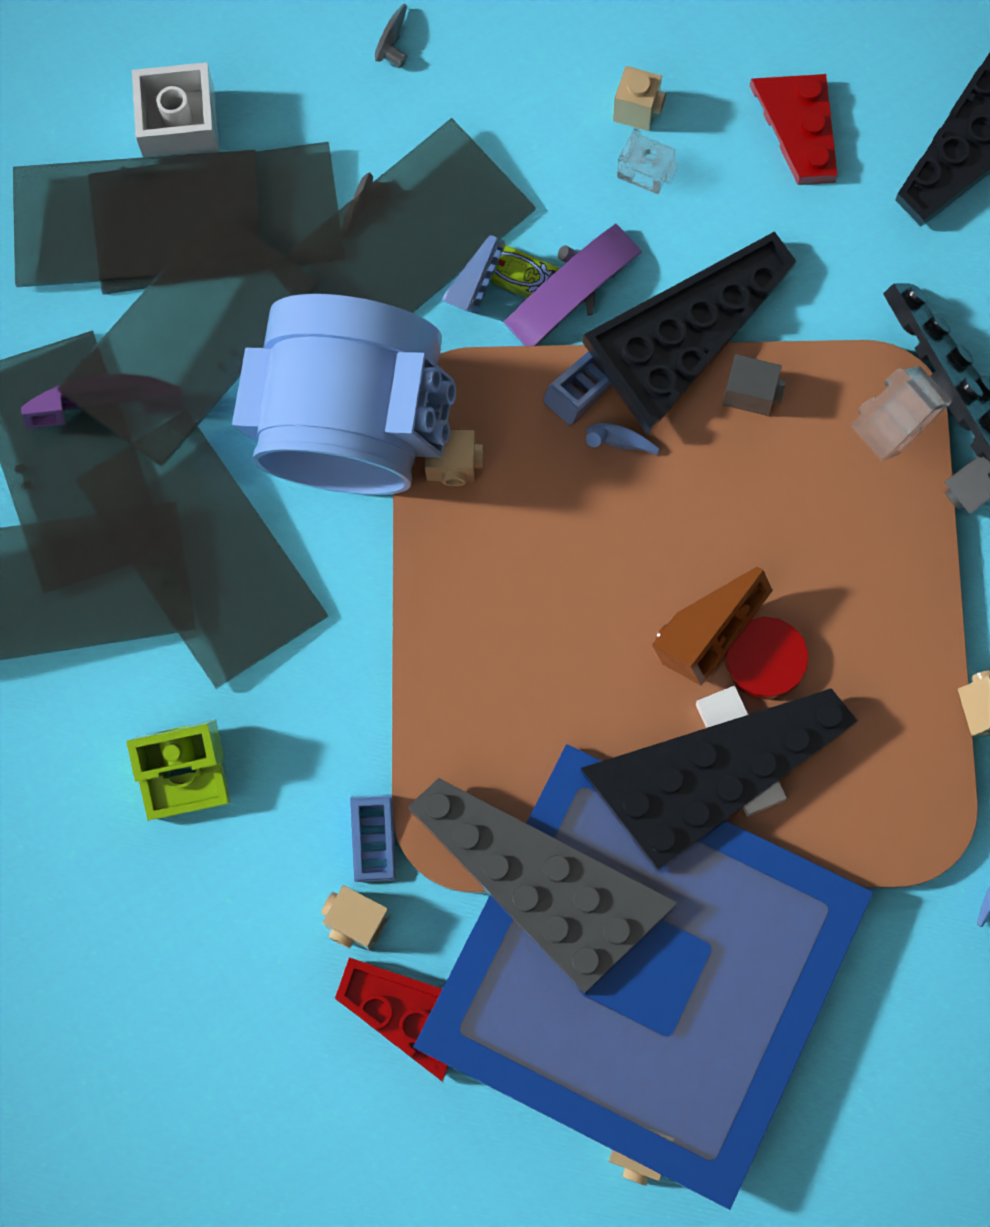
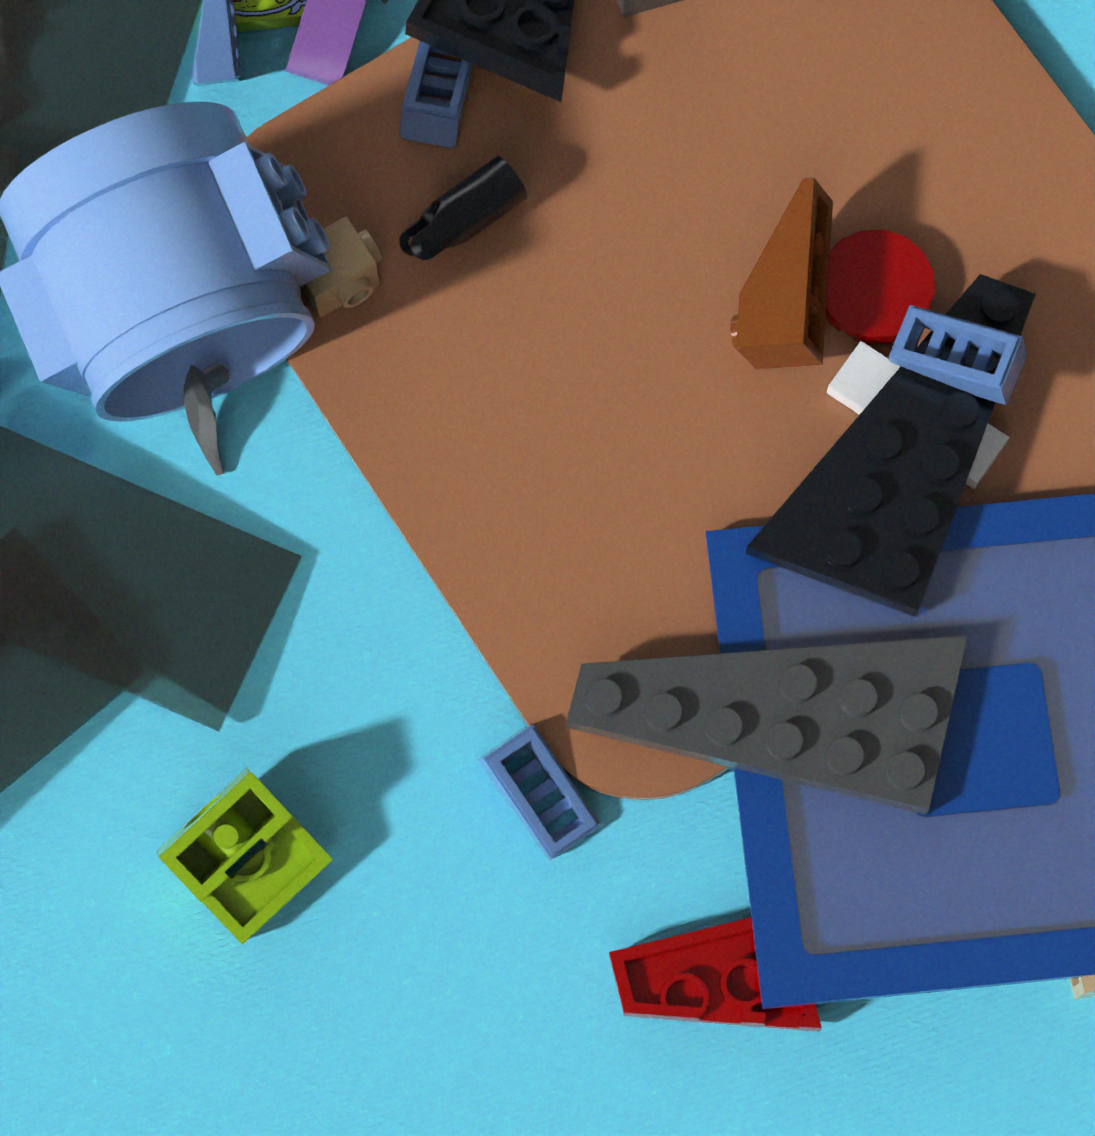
camera: 35 degrees left, 0 degrees up
(324, 494) = (200, 411): none -> dark grey bar
(354, 918) = (583, 902): tan brick -> none
(548, 467) = (465, 210): none -> black piece
(618, 437) = (525, 127): medium blue bar -> none
(804, 757) = (974, 380): none -> medium blue slope

